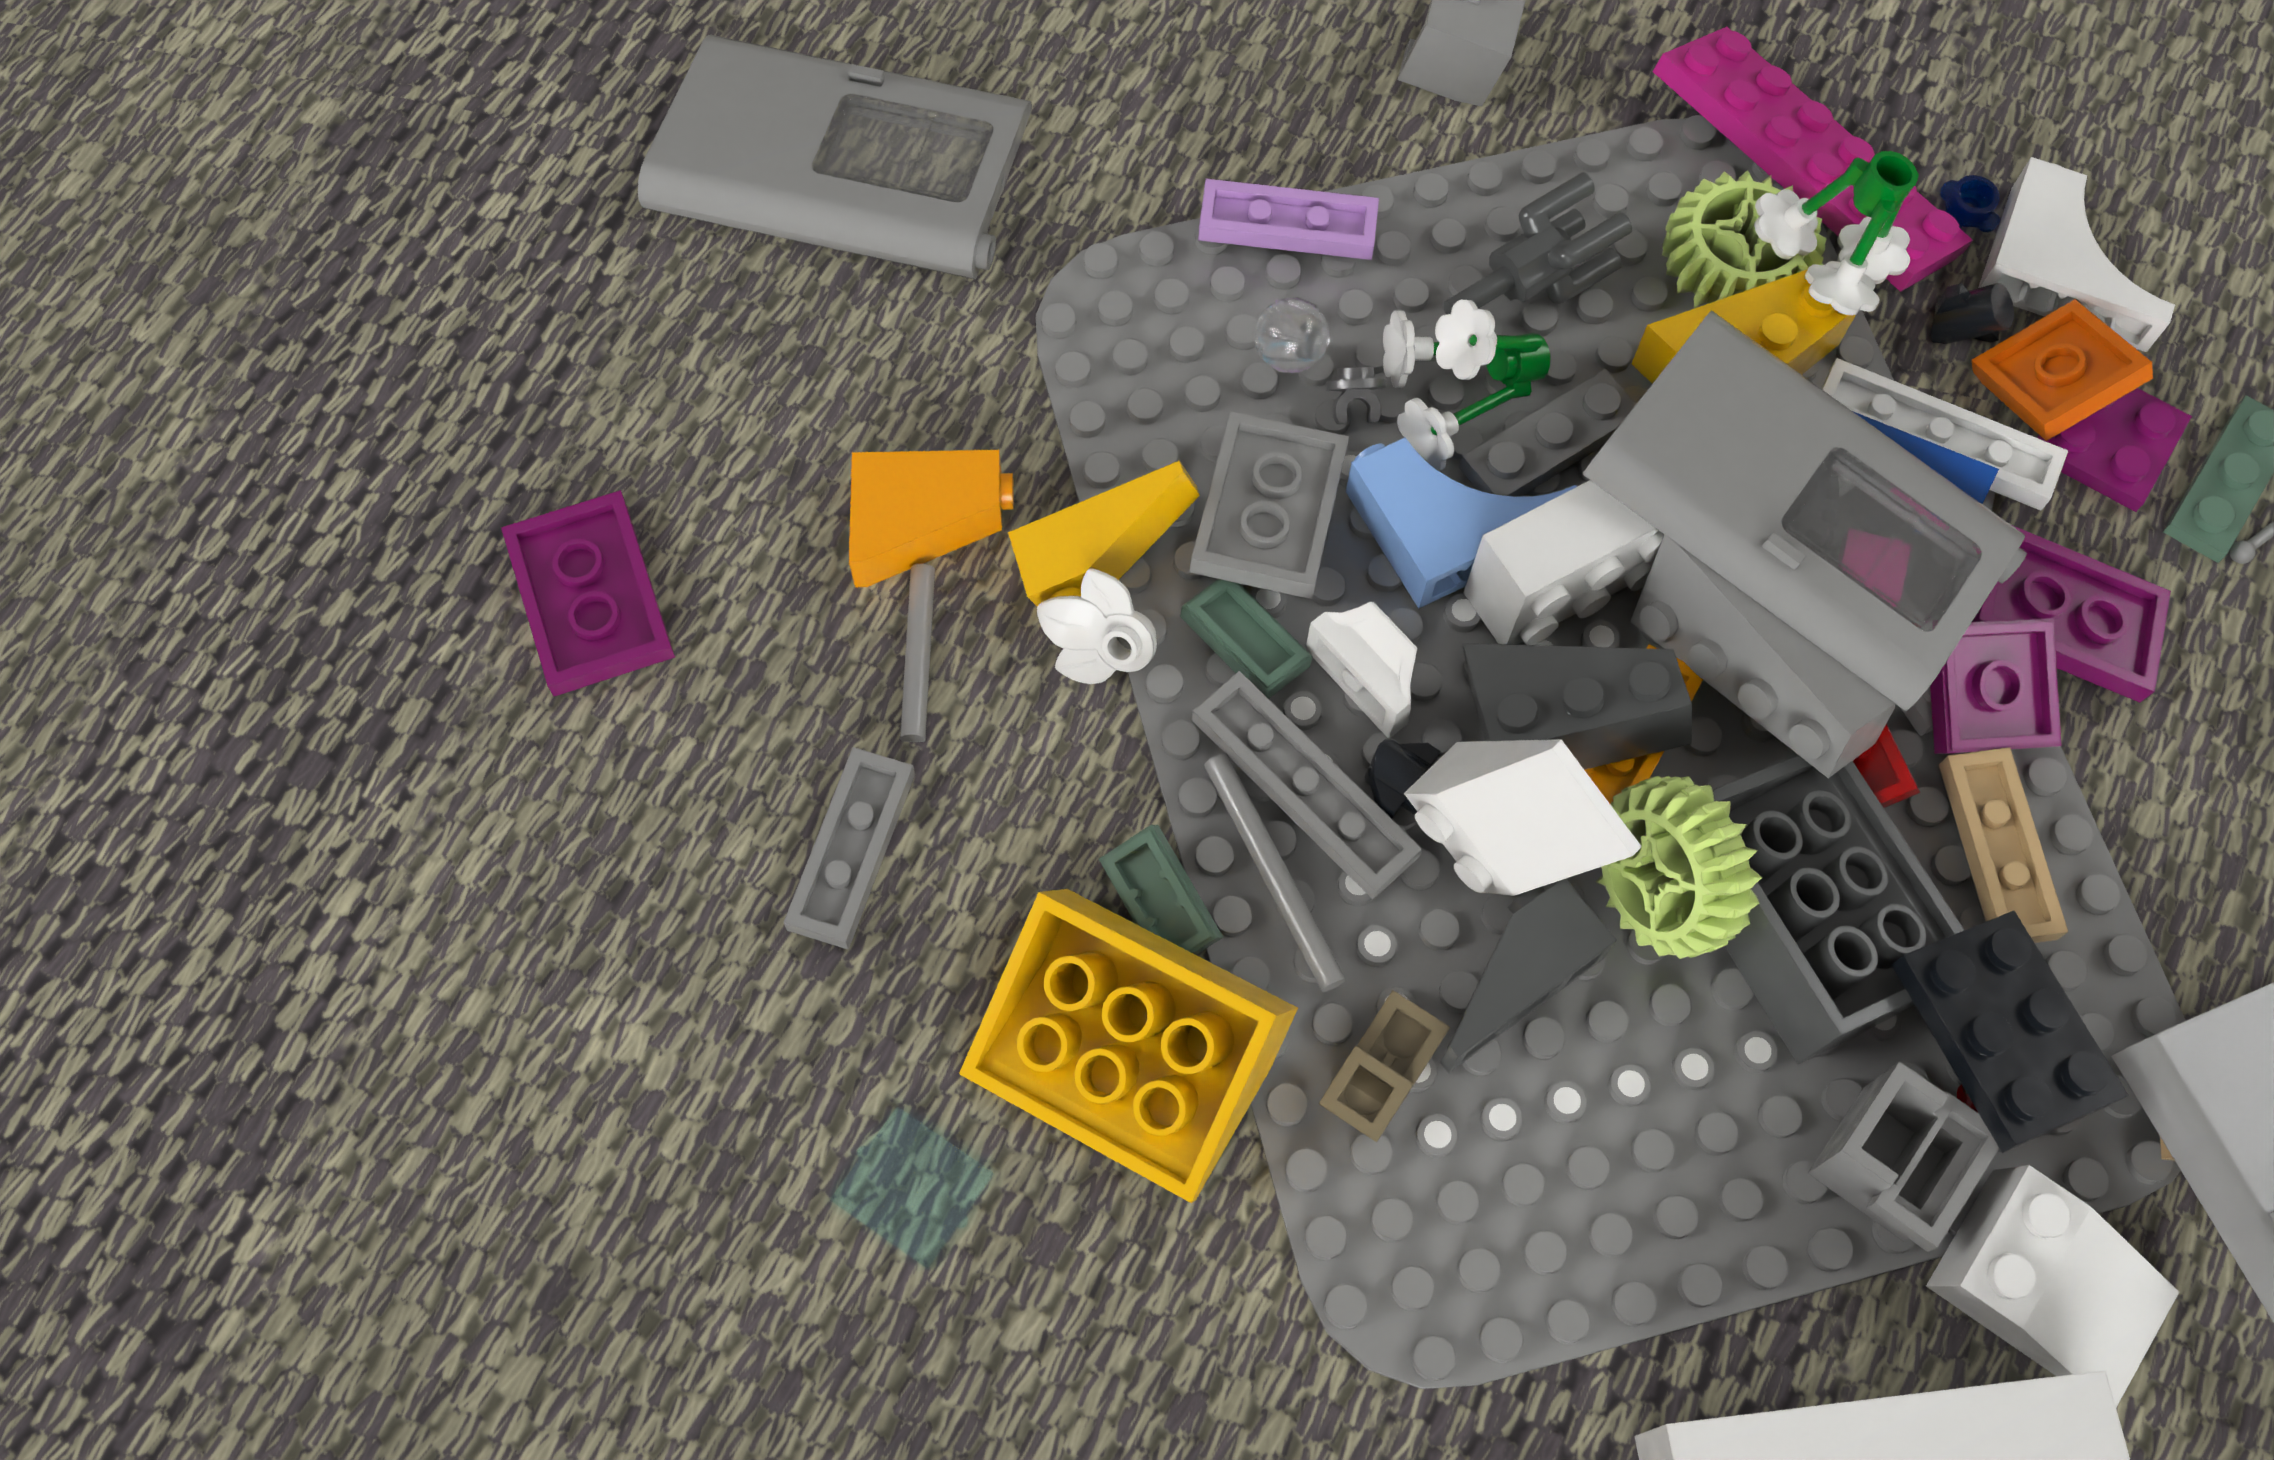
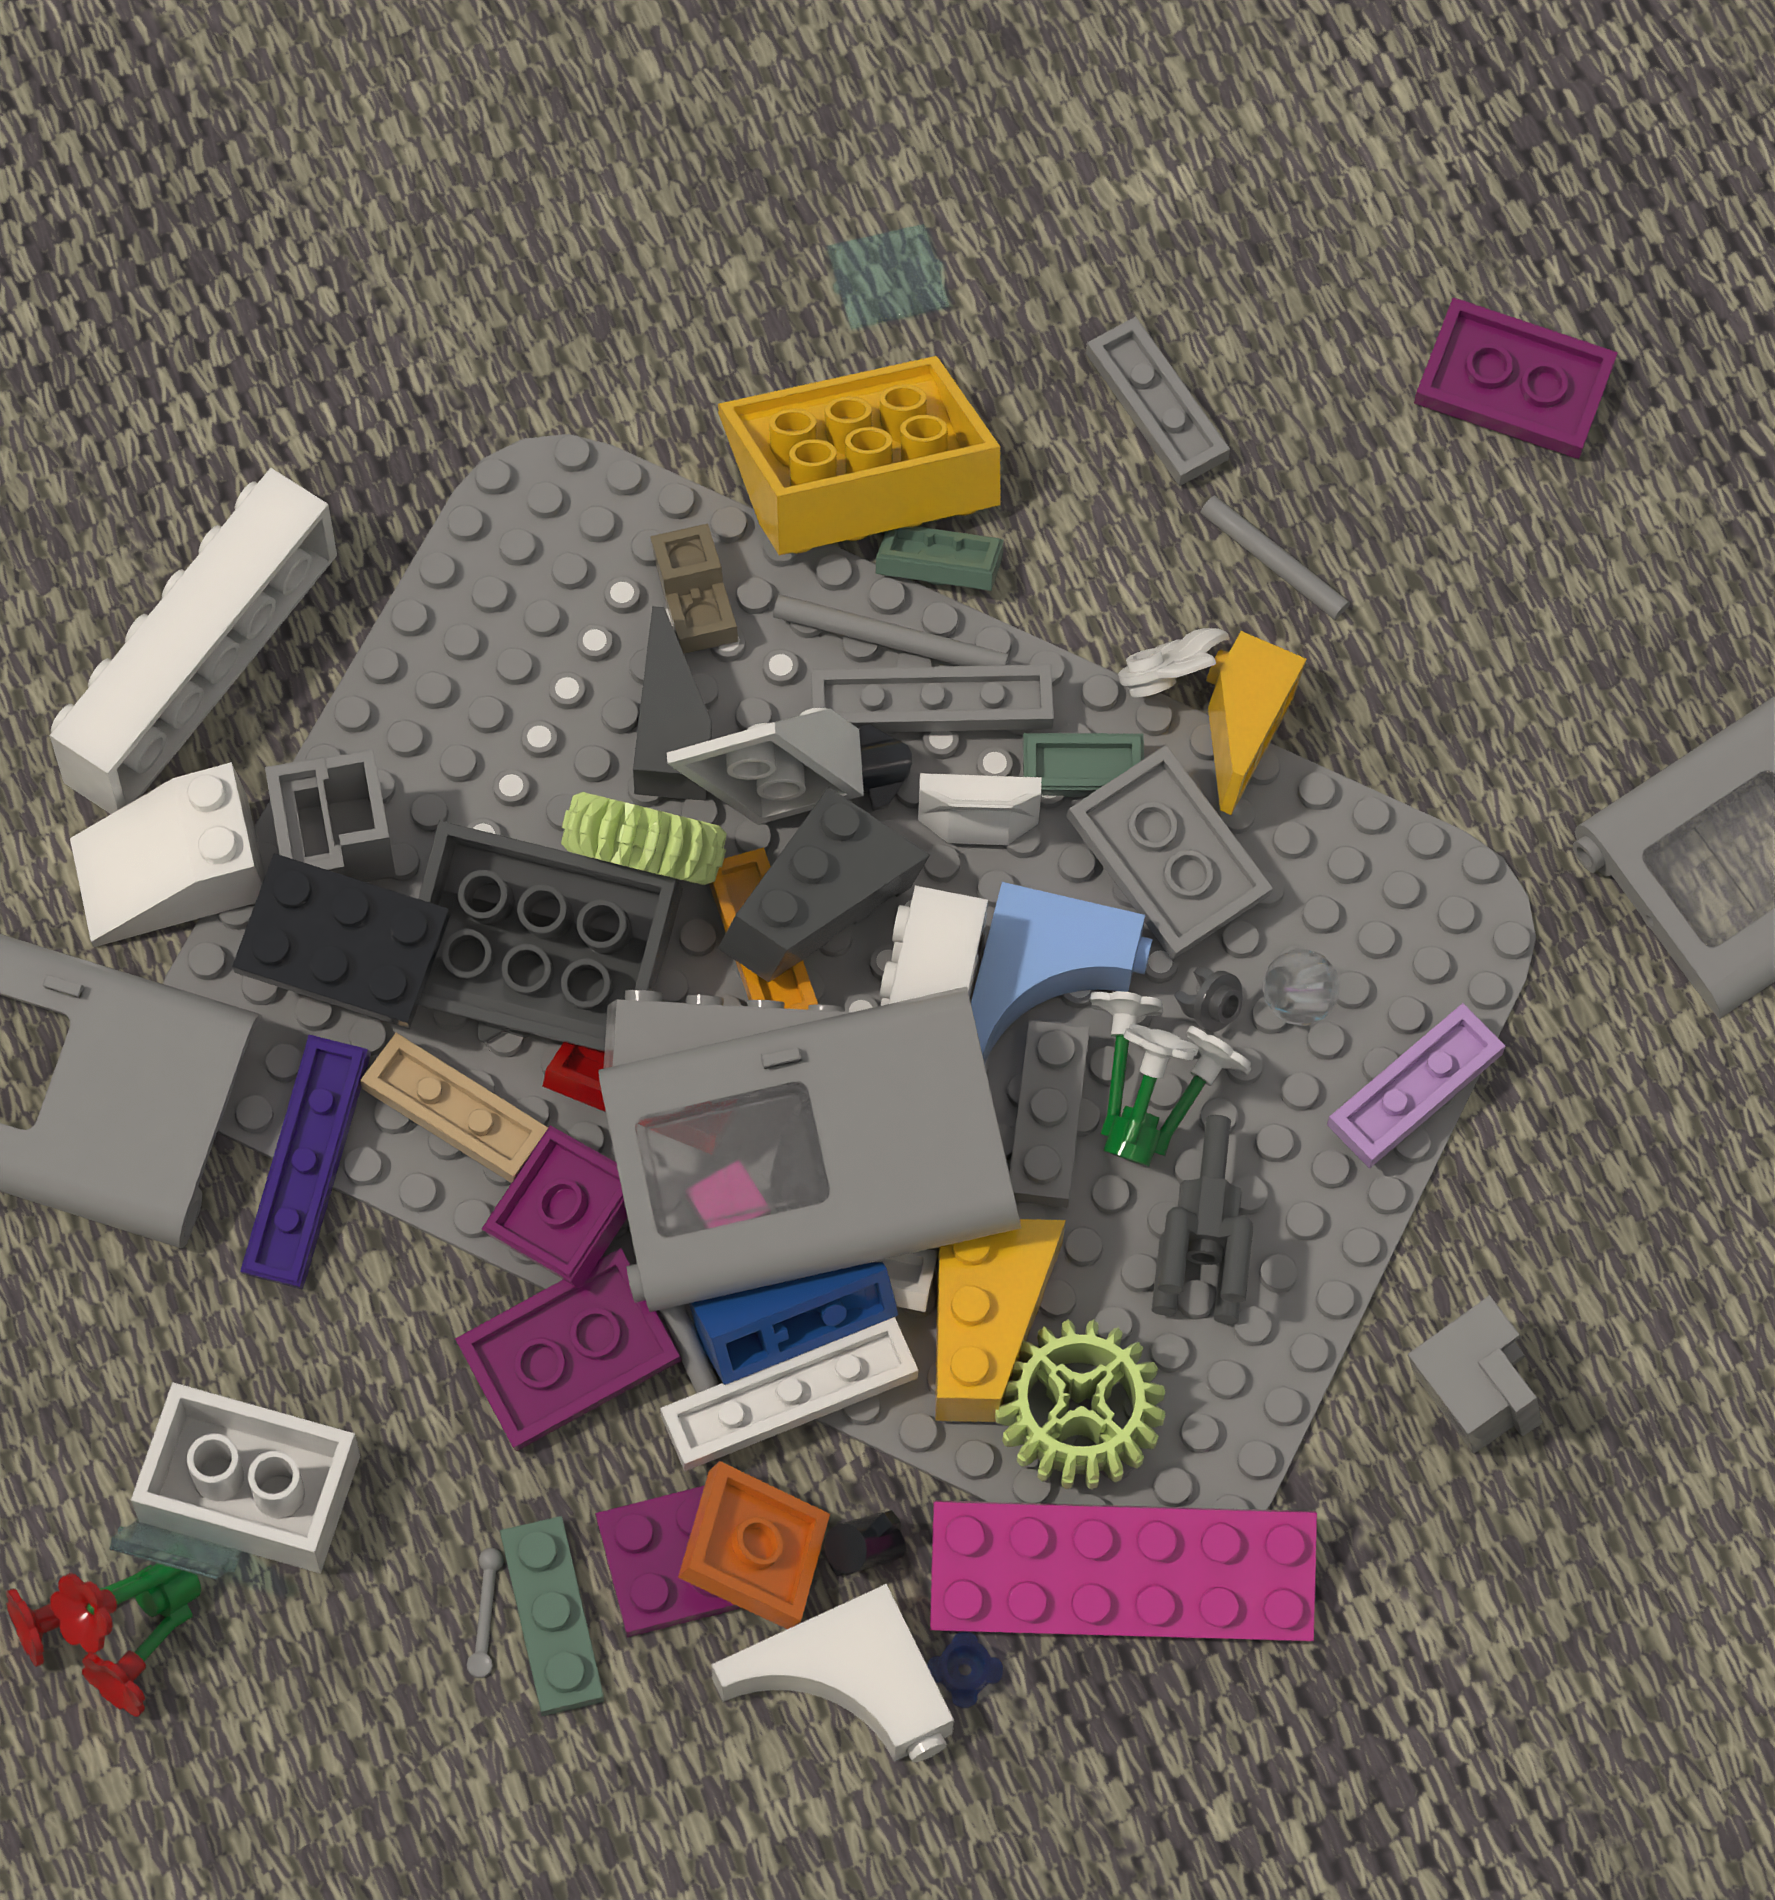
camera: 130 degrees right, 0 degrees up
(921, 507) = (1392, 633): light orange slope -> none
(1868, 249) = (968, 1381): white plant -> none
(2154, 929) = (305, 1162): none -> dark purple tile

